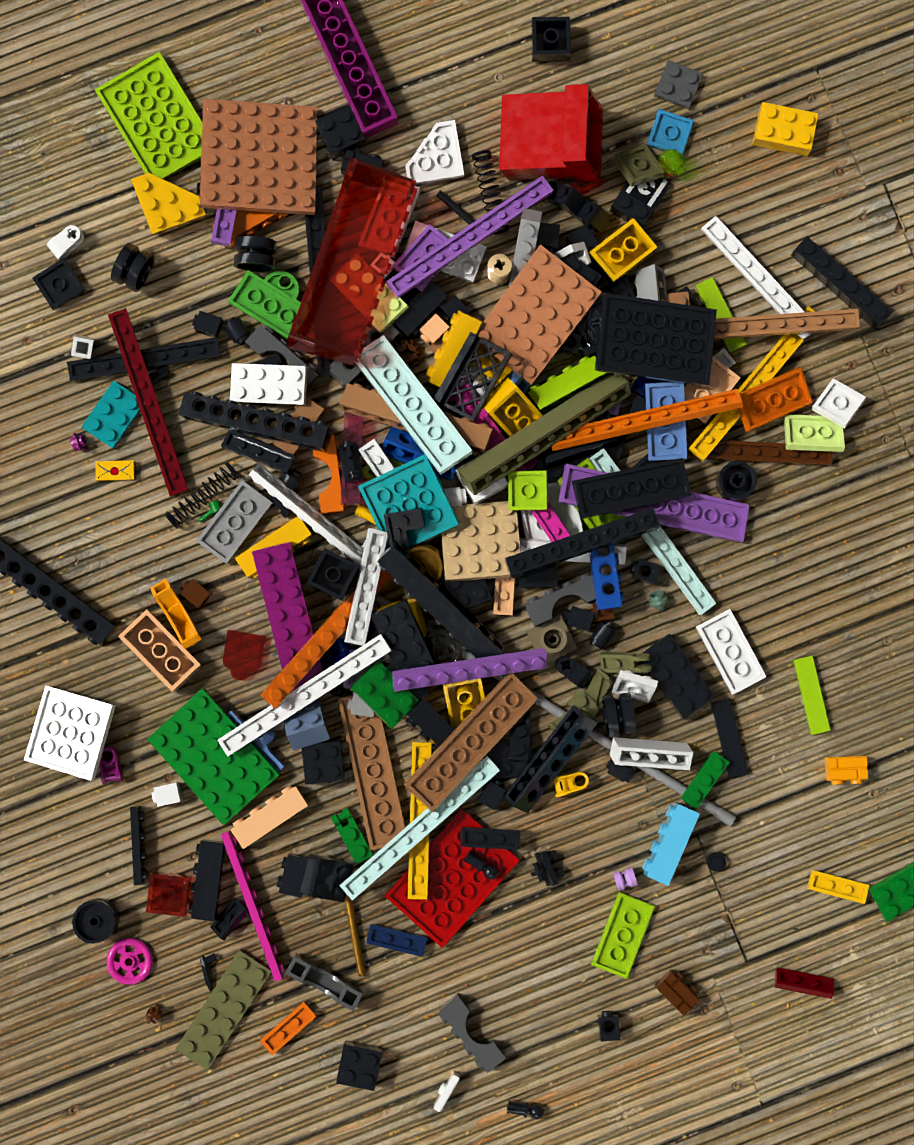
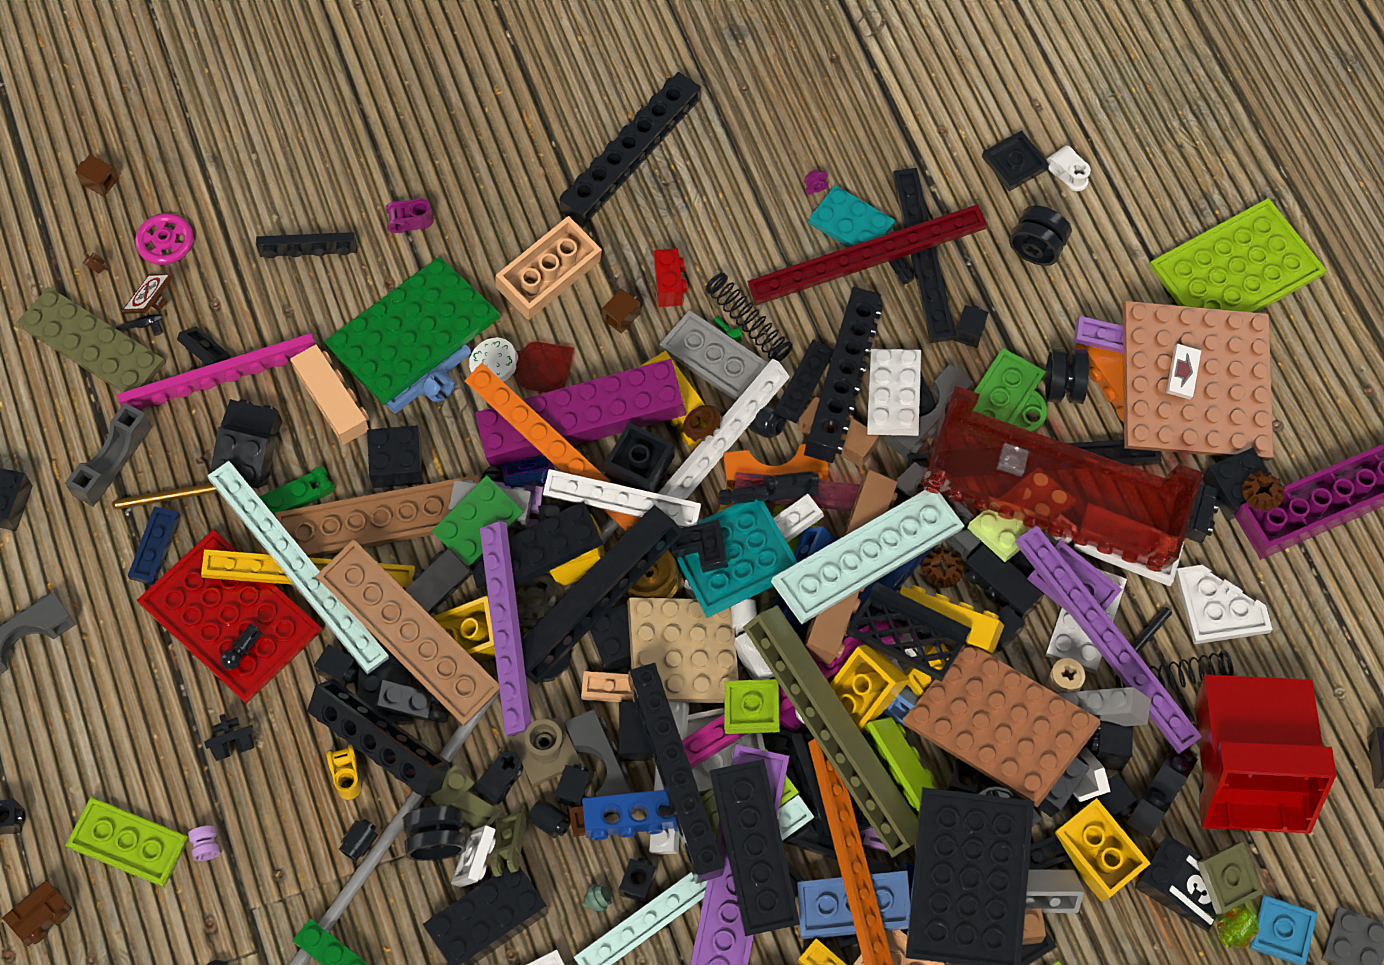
camera: 90 degrees right, 20 degrees down
(69, 733) = (451, 168): white plate -> none
(72, 1022) = (96, 175): none -> reddish brown brick
(82, 346) = (936, 182): white brick -> none
(96, 932) = (217, 197): black wheel -> none
(115, 470) = (780, 223): yellow tile -> none
(165, 203) = (1126, 270): yellow brick -> none
(167, 557) = (668, 277): none -> red brick
(167, 794) = (367, 278): white brick -> none
(169, 894) = (241, 276): clear red brick -> none
(176, 613) = (589, 290): light orange arch -> none
(183, 967) = (148, 294): none -> piece
(208, 880) = (253, 322): black brick -> none
(237, 331) = (965, 358): black brick -> none
(240, 691) = (497, 355): none -> white tile
(257, 165) = (1183, 371): none -> white tile
(288, 1028) = (57, 415): orange plate -> none
(300, 536) = (706, 413): none -> reddish brown gear
(305, 695) = (483, 425): white plate -> none
(307, 726) = (446, 431): sand blue brick -> none
(330, 297) = (1012, 459): none -> clear plate
(351, 123) = (1263, 500): none -> reddish brown gear
(361, 496) = (744, 495): none -> black axle
(433, 330) = (977, 596): light nougat brick -> none
(490, 838) = (276, 659): black plate -> none
(588, 187) = (1191, 810): clear red bar -> none
(651, 753) = (376, 876): white brick -> none
(670, 843) = (245, 902): medium azure brick -> none

